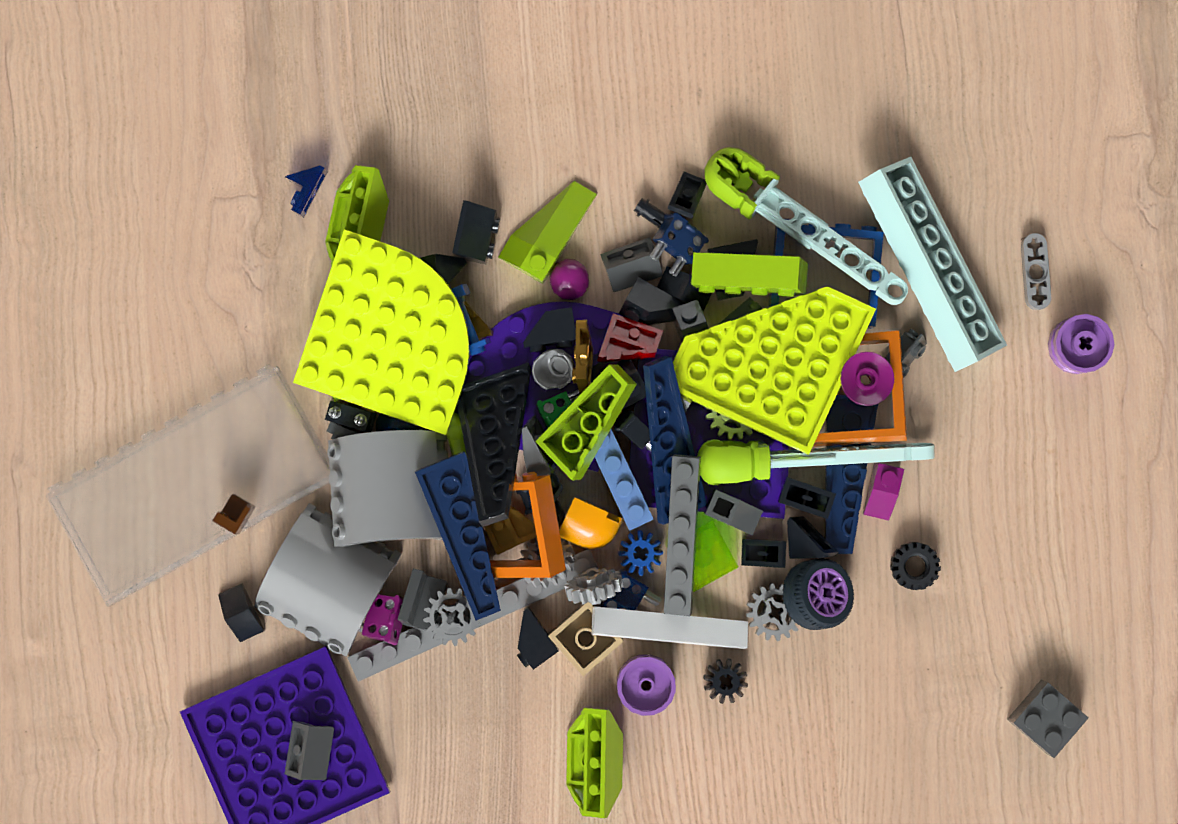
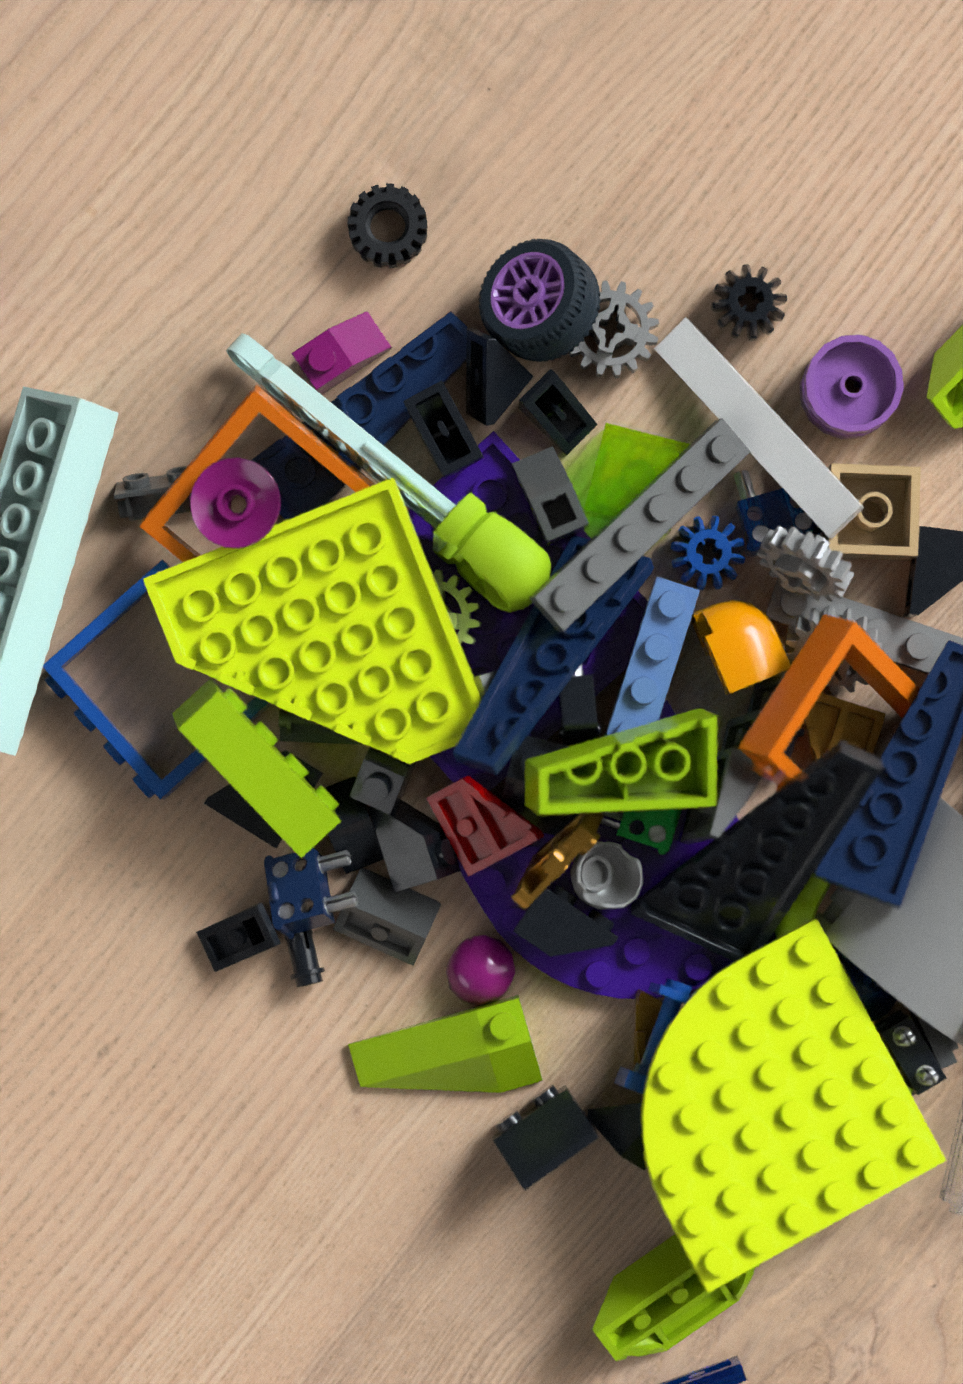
camera: 135 degrees left, 0 degrees up
(722, 172) = (173, 924): light aqua piece -> none

